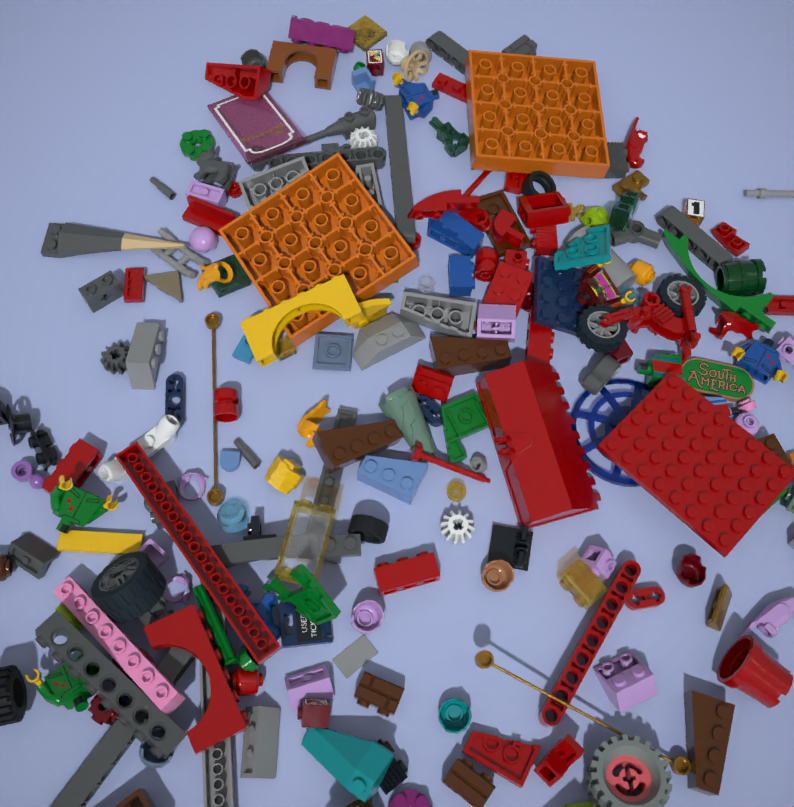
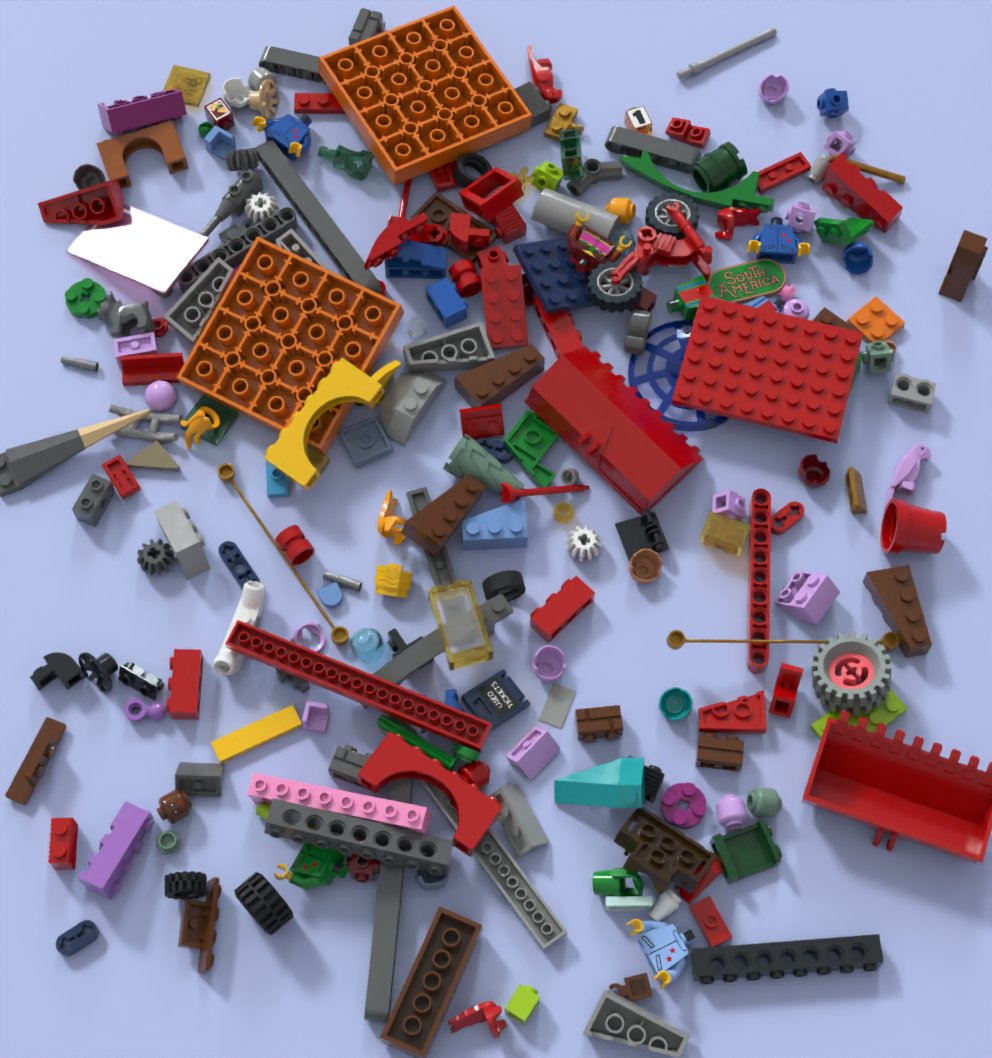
camera: 25 degrees left, 0 degrees up
(77, 505) = (216, 709): green torso -> none
(128, 587) = (318, 750): black wheel -> none
(183, 579) = (355, 725): lavender piece -> none
(309, 600) = (494, 675): green wing -> none
(314, 713) = (552, 768): dark red brick -> none
(496, 322) = (511, 331): lavender slope -> none
(588, 250) = (559, 216): teal plate -> none

